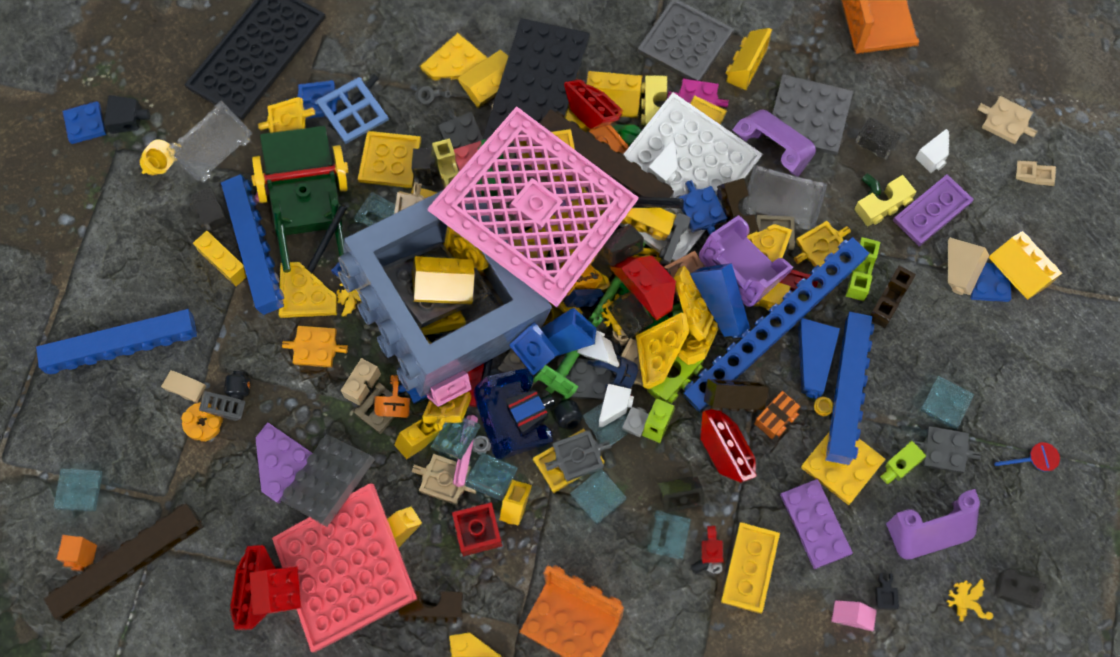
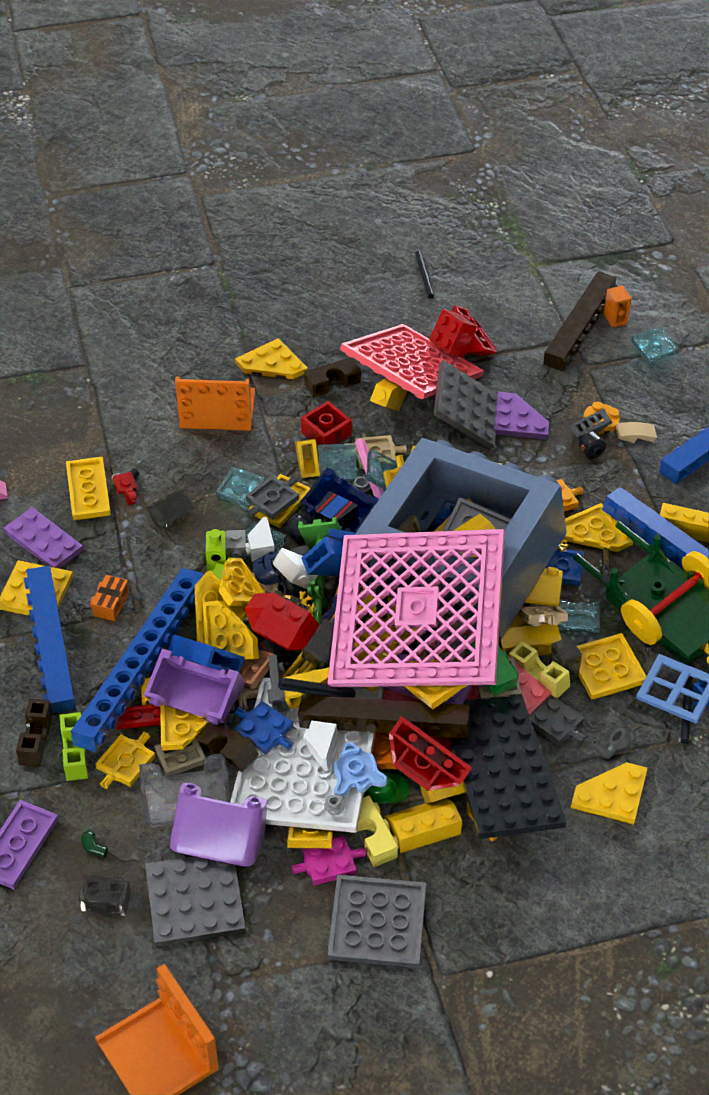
camera: 150 degrees right, 20 degrees down
(484, 79) = (570, 773): yellow slope -> none
(648, 134) = (356, 770): none -> light blue tile
(675, 538) = (160, 482): clear light blue plate -> none
(680, 117) = (334, 809): none -> light grey plate
(727, 446) = (140, 555): red wedge -> none
(736, 395) = (154, 586): dark brown brick -> none
(748, 58) = (293, 922): yellow slope -> none
(816, 354) = (92, 656): blue slope -> none
(823, 406) = (69, 624): yellow plate -> none
(873, 210) = (82, 815): light yellow arch -> none
(934, 153) = (34, 906): white slope -> none

